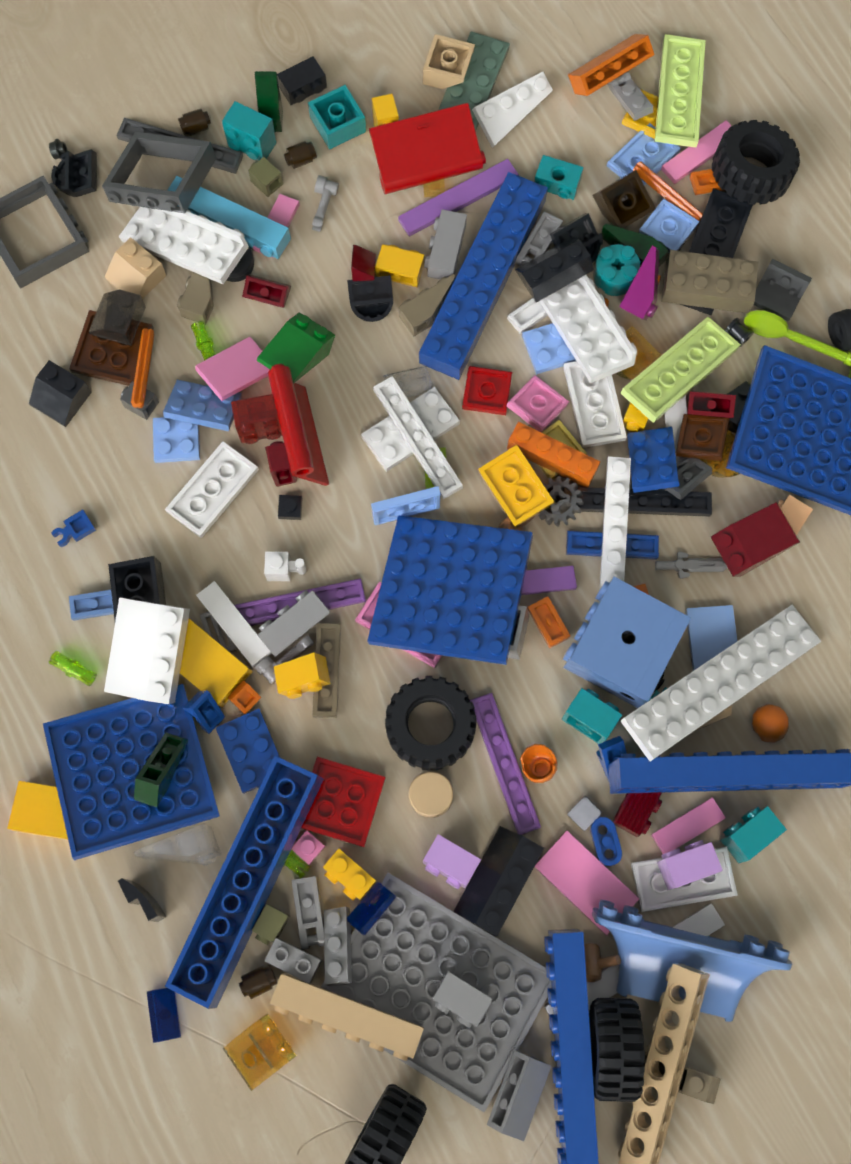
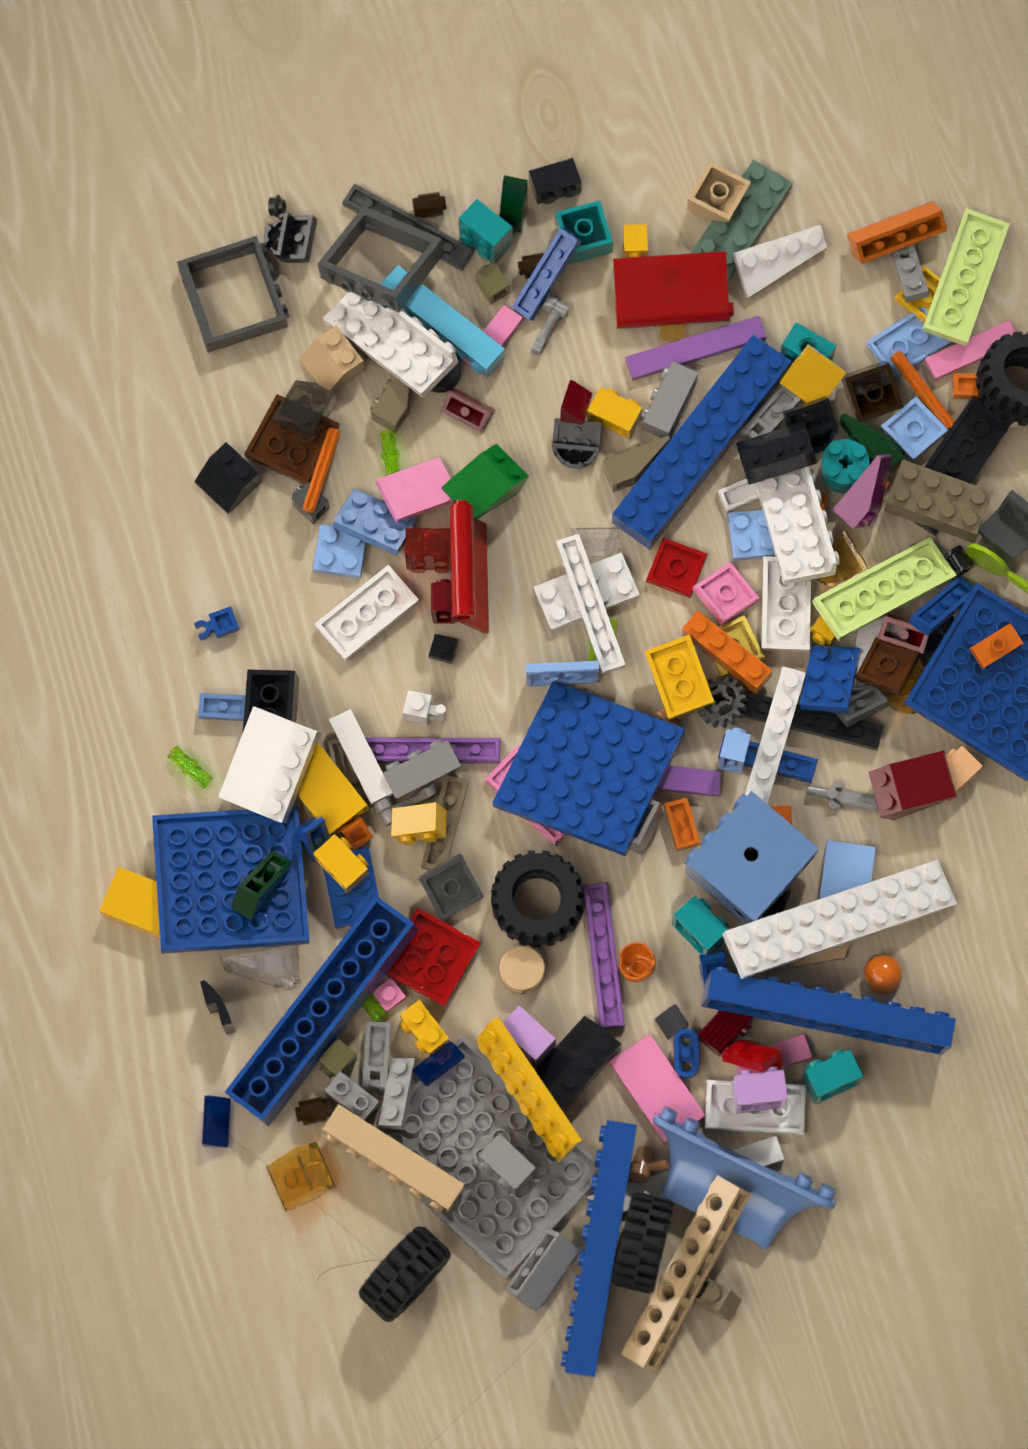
camera: 15 degrees right, 0 degrees up
(235, 730) = (342, 863): none -> yellow brick
(312, 156) = (546, 273): none -> plate
(345, 729) = (450, 887): none -> dark grey plate
(465, 916) = (528, 1090): none -> yellow plate
(569, 197) = (812, 375): none -> yellow tile
(583, 543) = (734, 750): none -> light blue brick
(675, 832) = (753, 1055): none -> red slope
(738, 373) = (941, 606): none -> blue plate
(797, 397) = (996, 646): none -> orange plate

